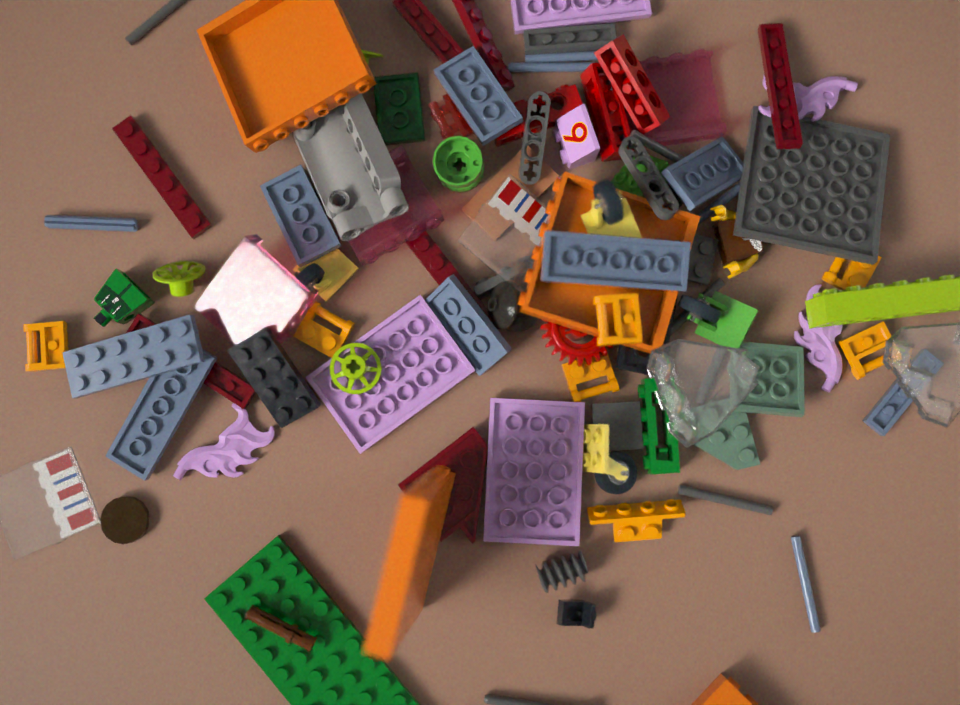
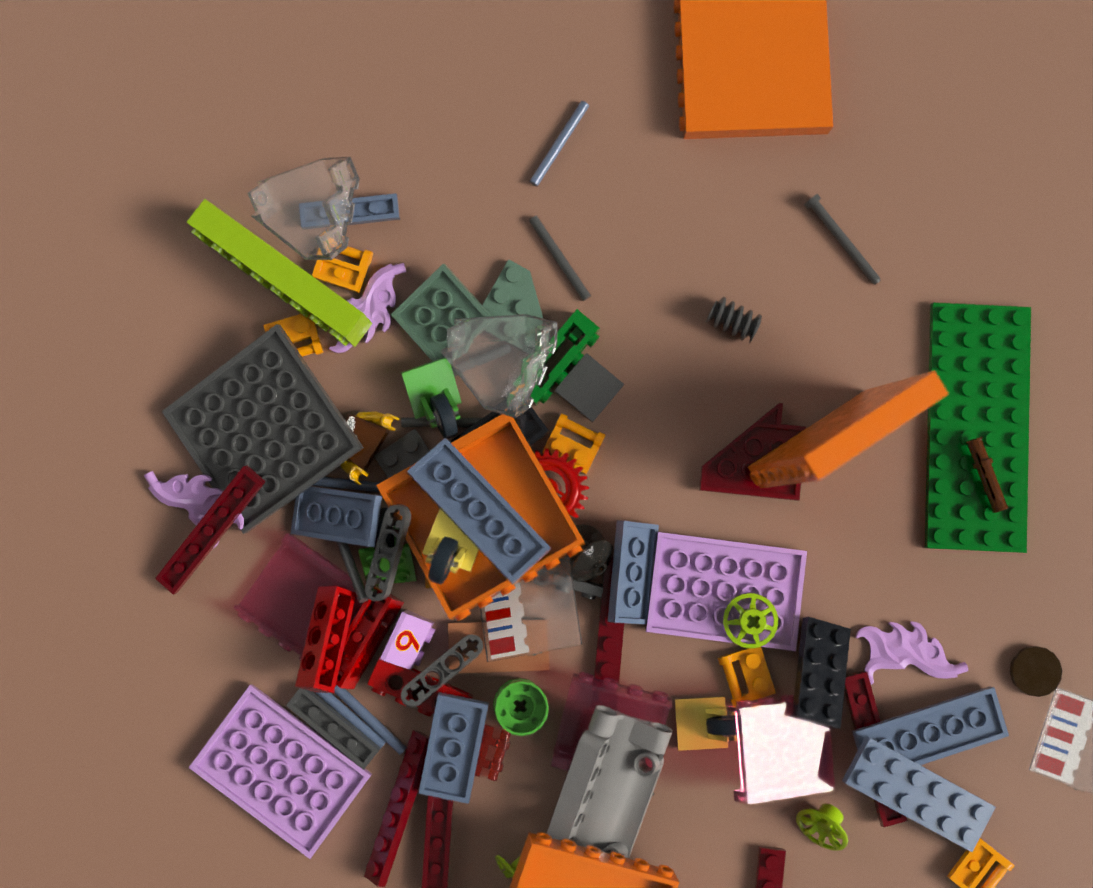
camera: 140 degrees left, 0 degrees up
(120, 299) = (887, 852): green torso -> none
(300, 216) = (683, 785): sand blue plate -> none
(399, 108) = (522, 800): dark green tile -> none
(534, 472) = (684, 413): lavender plate -> none
(576, 613) = (752, 280): black bracket -> none
(613, 470) = (623, 356): light yellow plate -> none
(626, 319) = (511, 460): light orange plate -> none
(636, 520) = (640, 305): light orange bracket -> none

